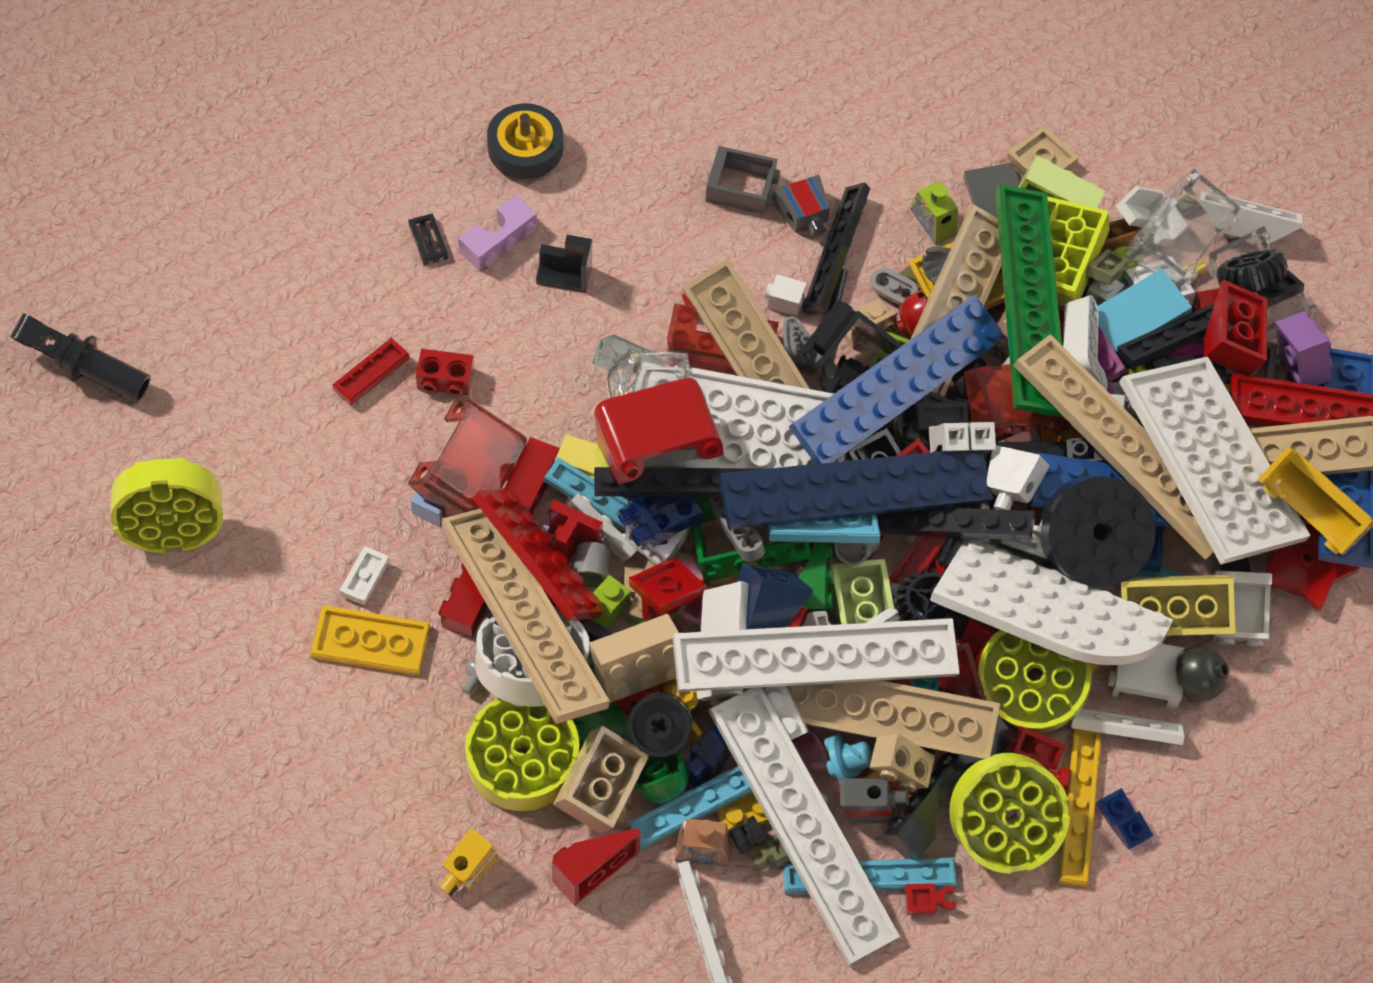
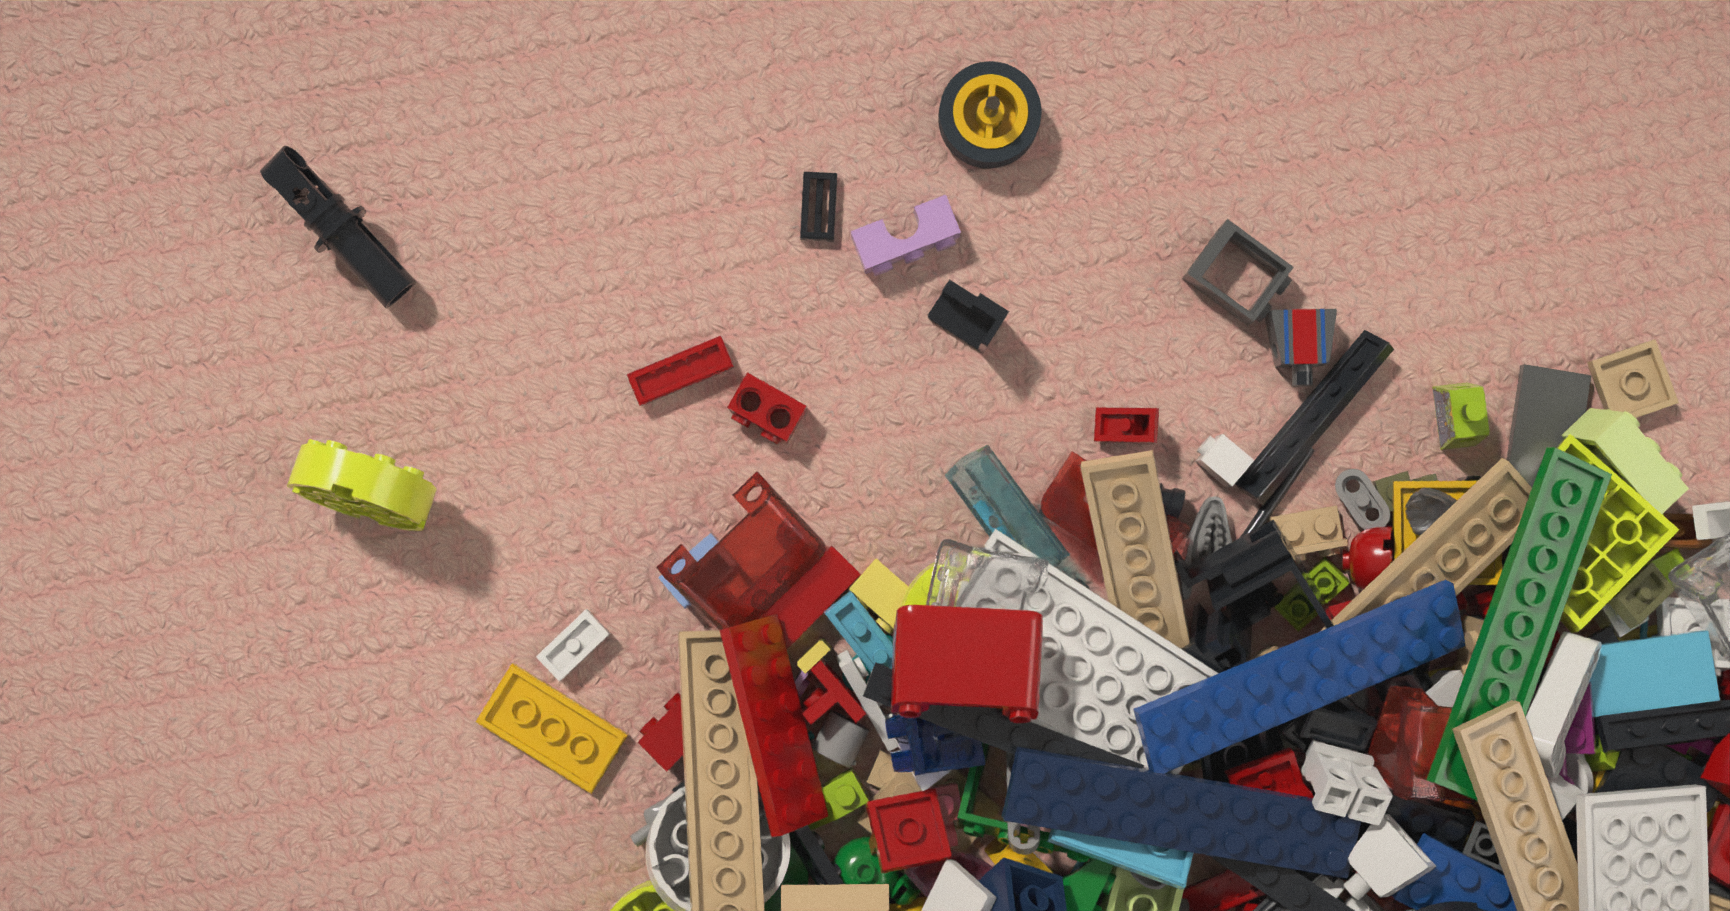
camera: 25 degrees right, 25 degrees up
(543, 507) = (813, 655): none -> light yellow tile

